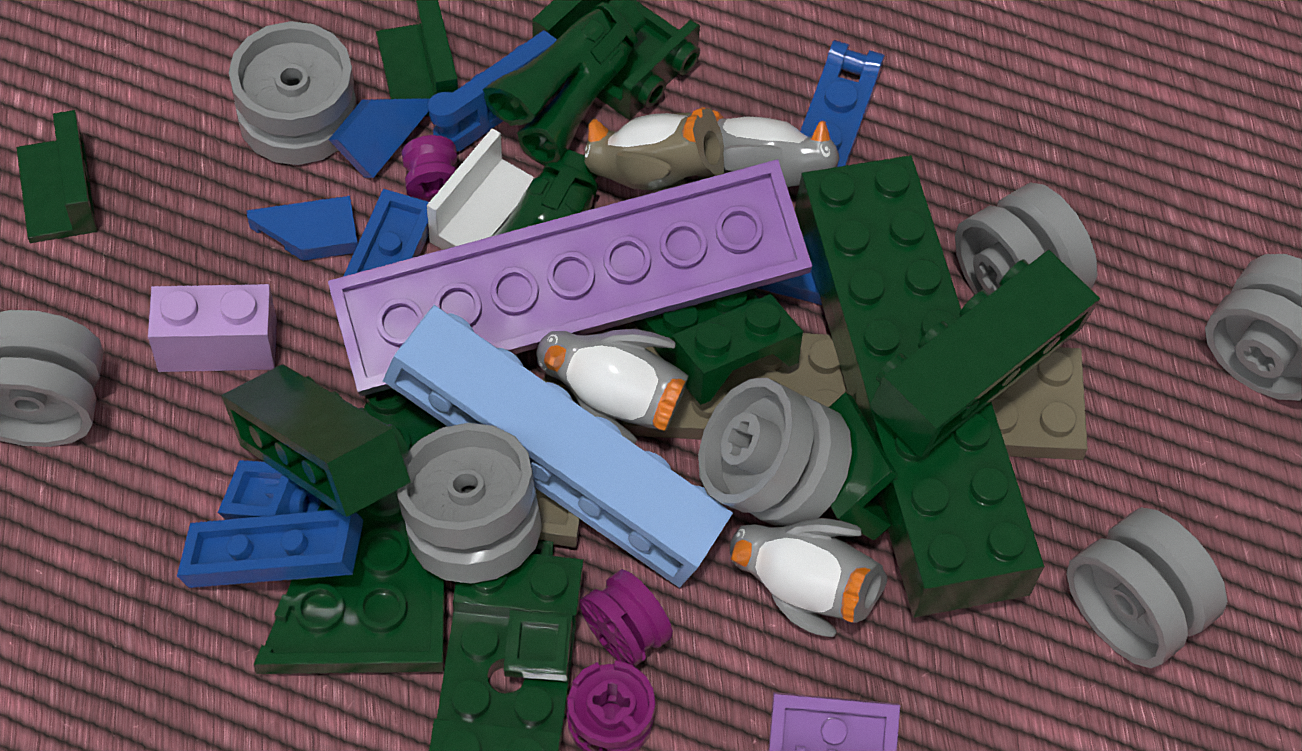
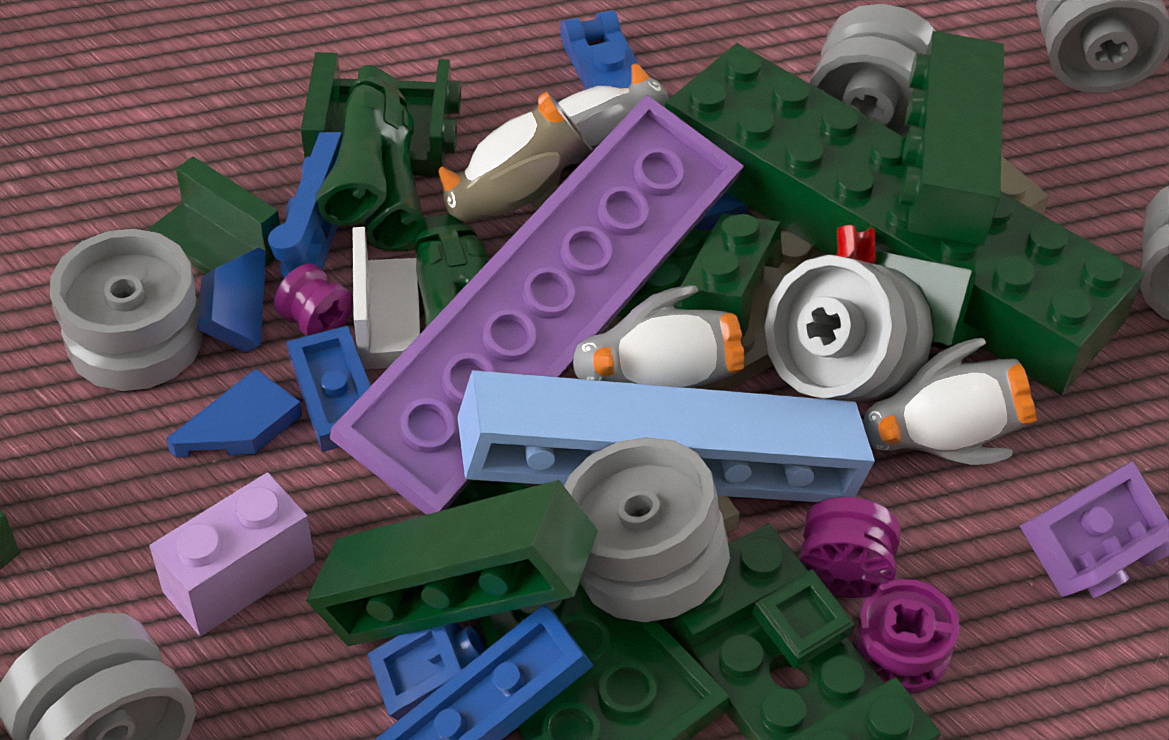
camera: 35 degrees left, 10 degrees down
(834, 391) = (856, 245): none -> red hand

